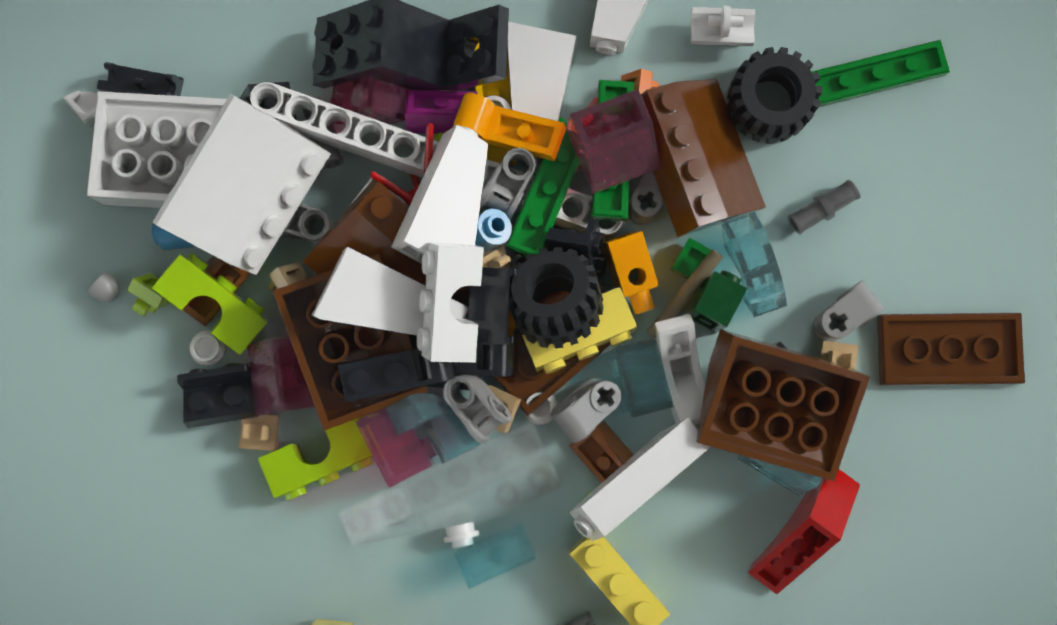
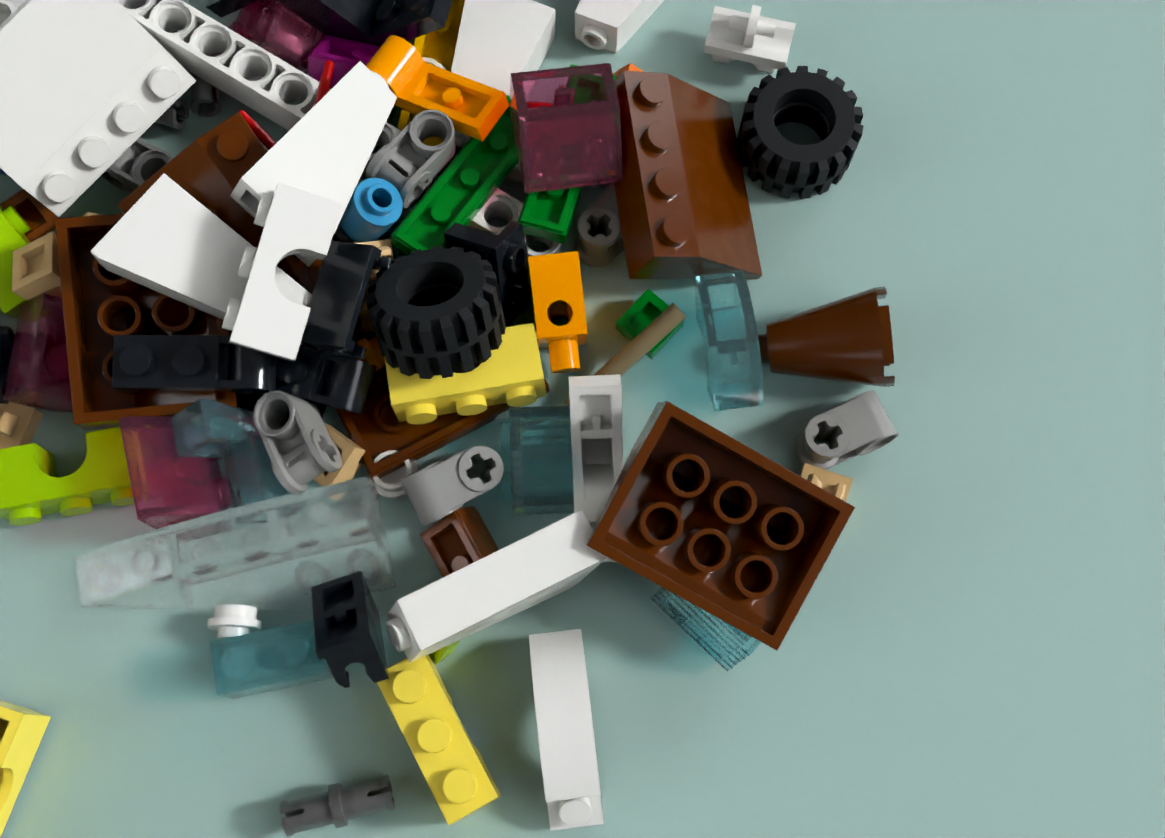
camera: 10 degrees right, 10 degrees down
(261, 320) = (37, 268): none -> tan tile
(543, 525) = (348, 628): none -> black hinge
(702, 556) = (565, 730): none -> white arch
(717, 301) = (663, 369): dark green brick -> none
(808, 533) = (724, 722): red arch -> none
(824, 206) = (841, 285): flat silver pin -> none
(830, 250) = (834, 341): none -> reddish brown cone
(882, 72) = (948, 139): green tile -> none
(950, 349) = (984, 513): reddish brown tile -> none

